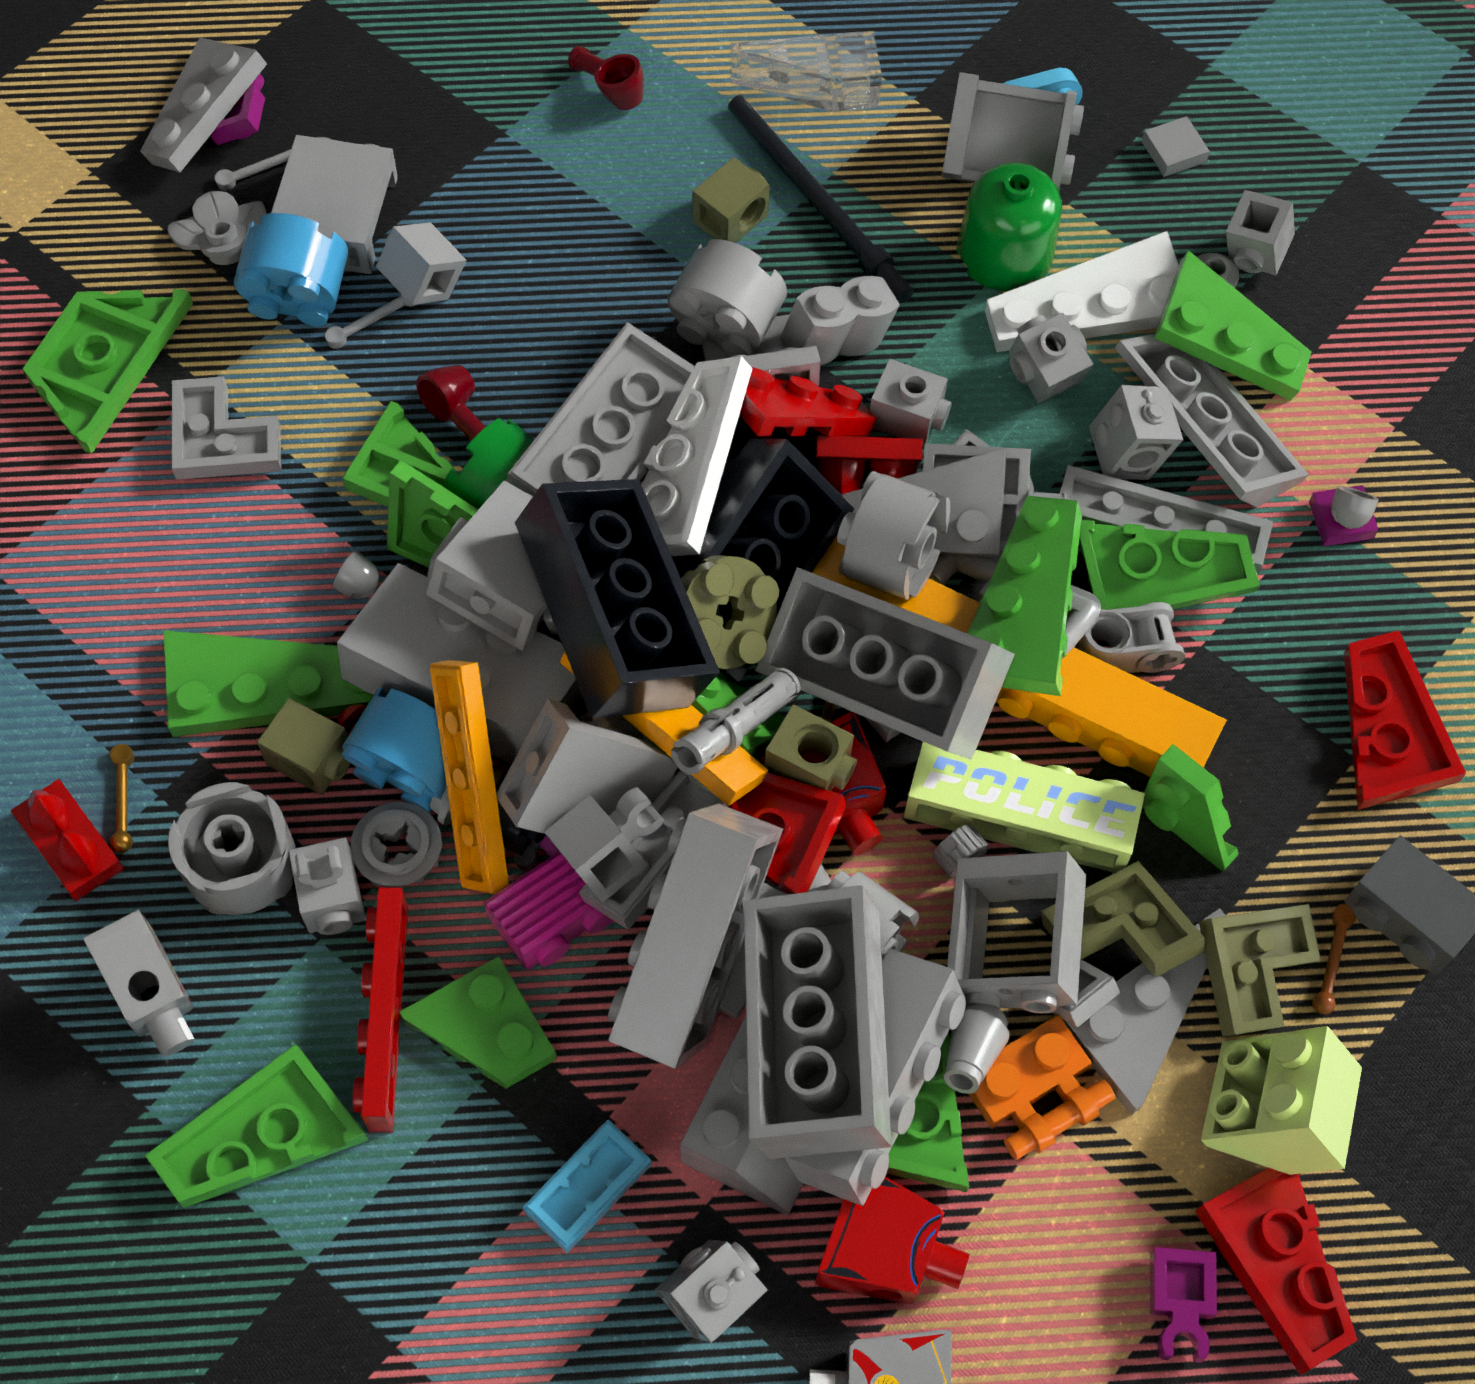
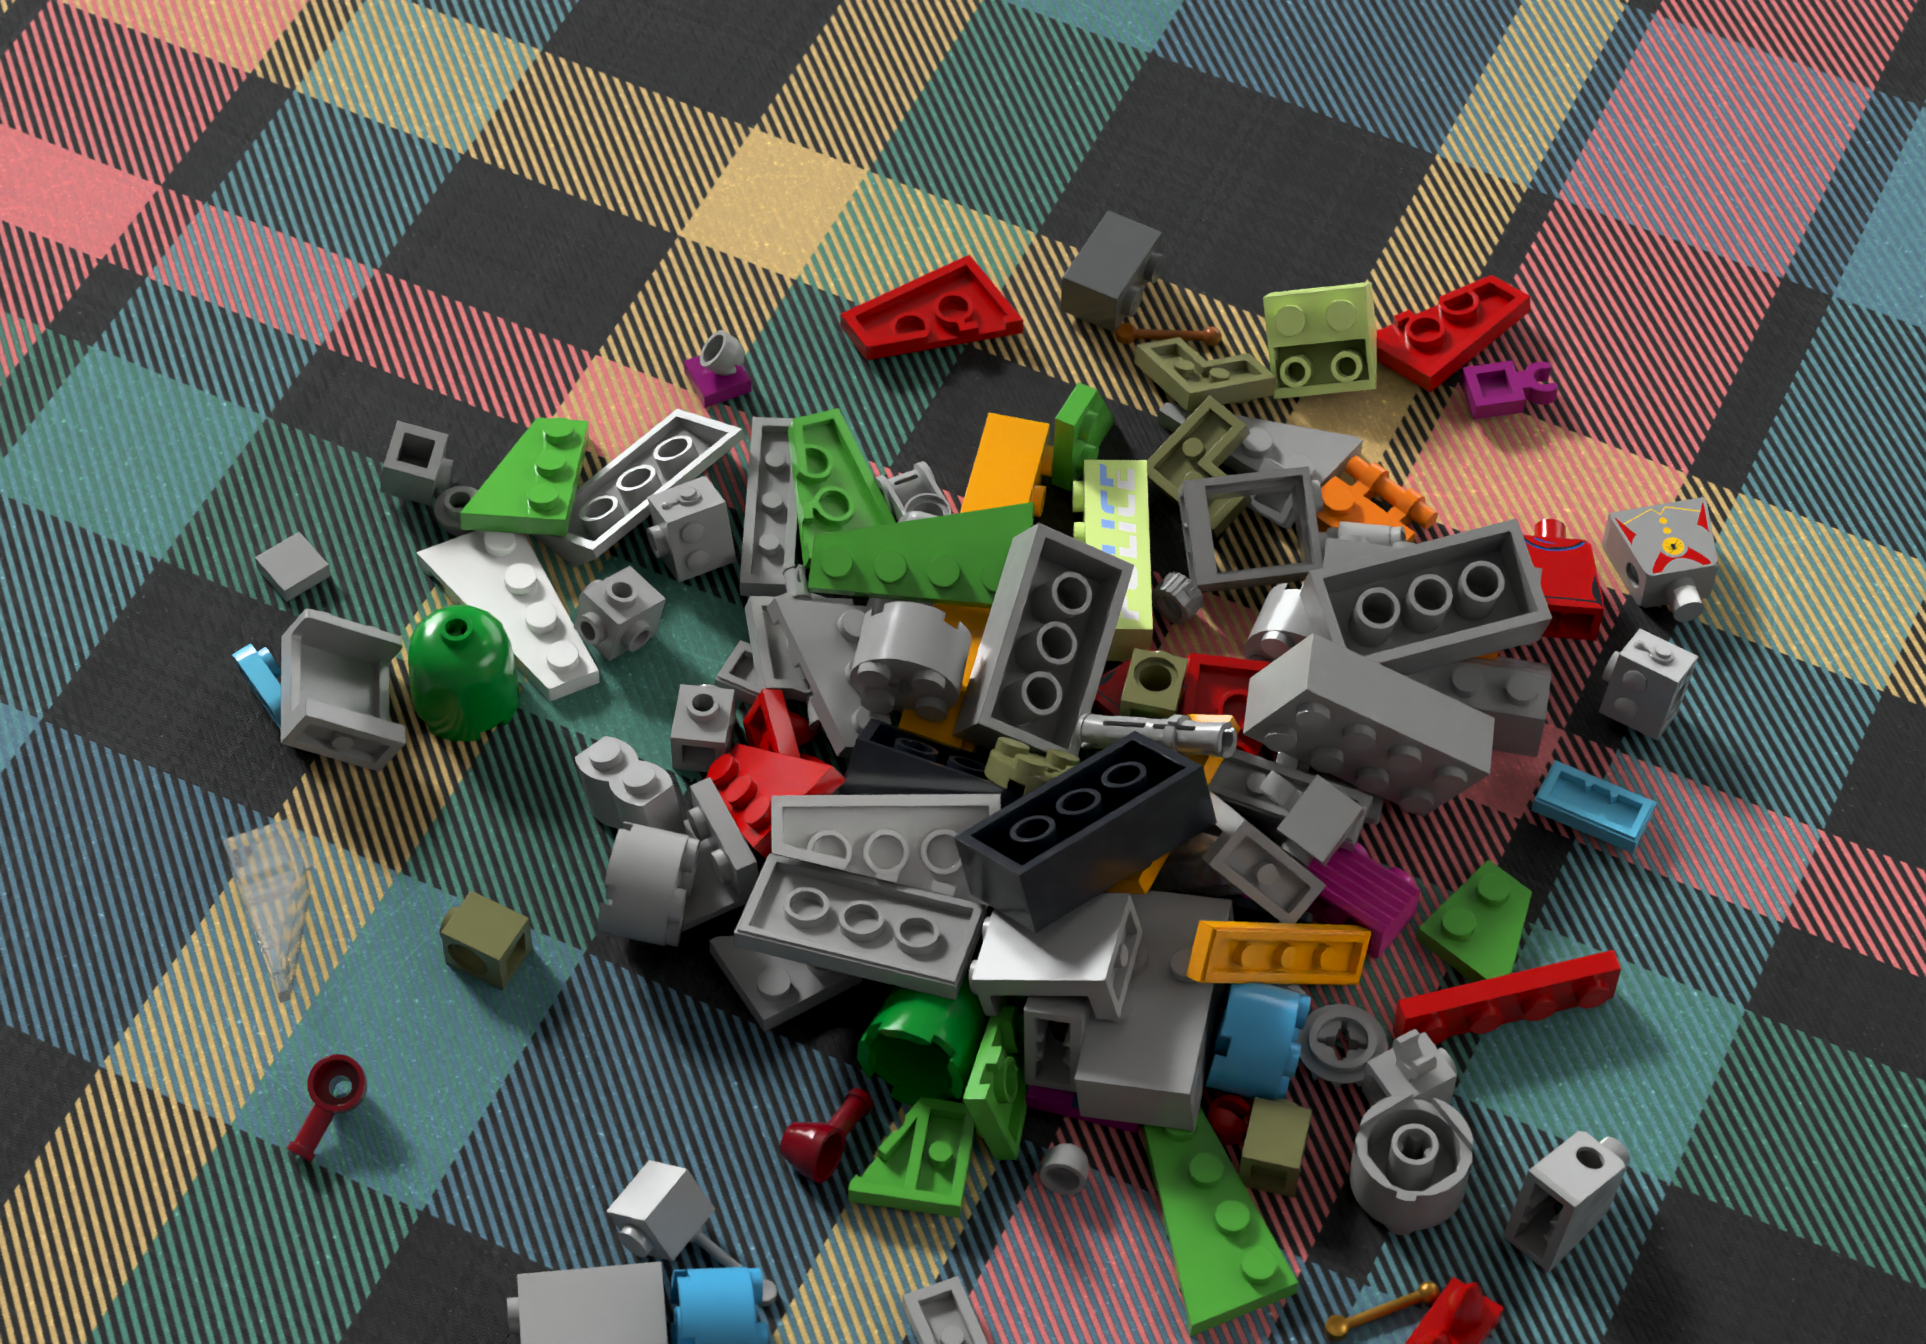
camera: 105 degrees left, 10 degrees down
(256, 1131) = (1652, 1069): bright green wing -> none
(872, 258) = (519, 801): black bar -> none

